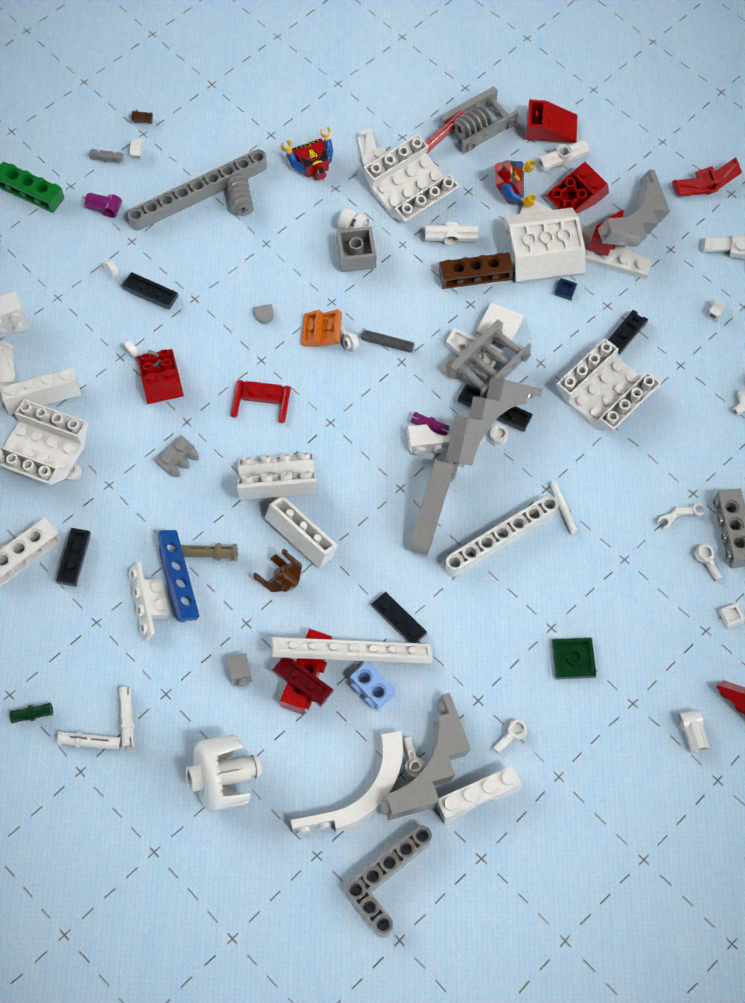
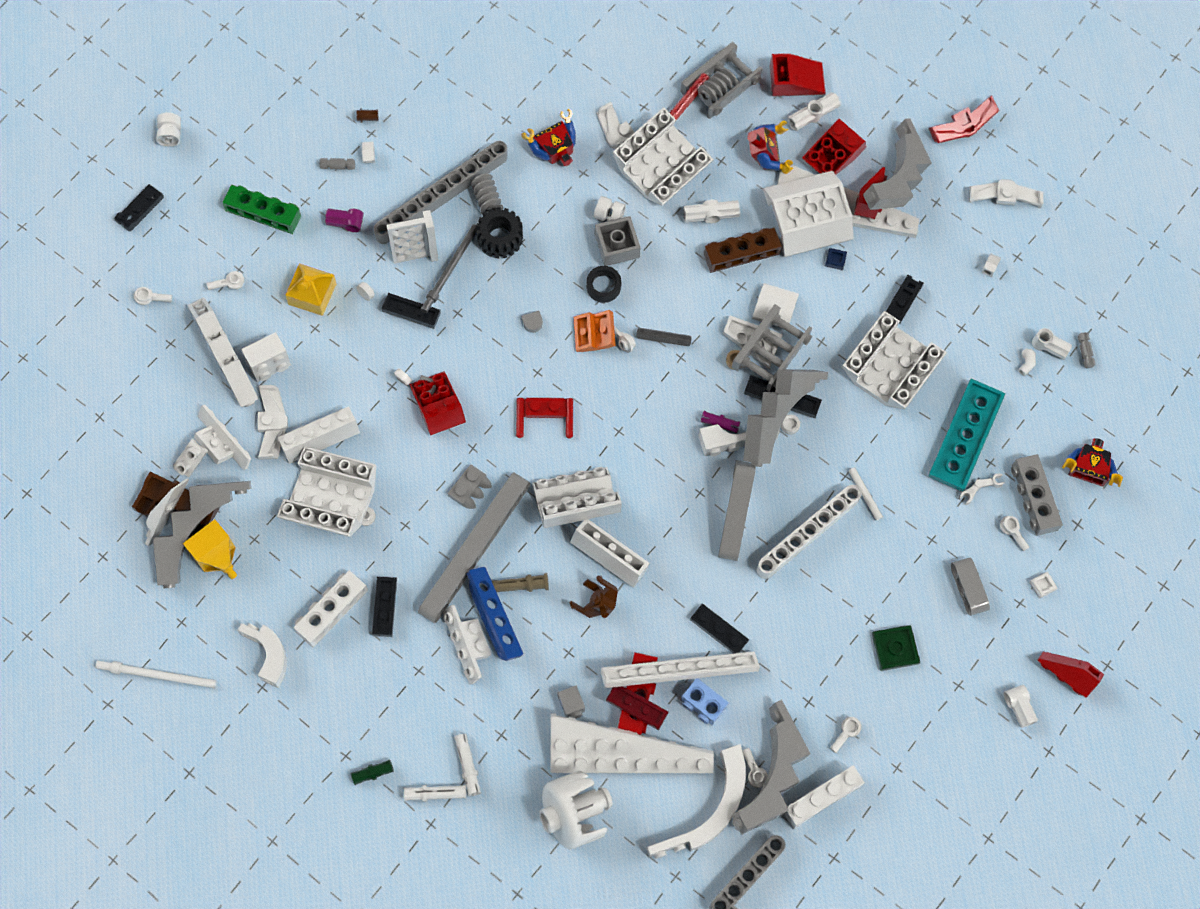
camera: 10 degrees left, 5 degrees up
(59, 261) = (311, 289): none -> yellow piece
(170, 512) = (474, 548): none -> light grey beam
(172, 279) = (433, 294): none -> flat silver bar
(173, 222) = (426, 238): none -> white fence
(243, 219) = (499, 219): none -> black tyre
(277, 722) = (614, 750): none -> white wing
(337, 275) = (603, 271): none -> black tyre
(656, 607) = (970, 586): none -> light grey beam
(676, 475) = (954, 438): none -> teal plate

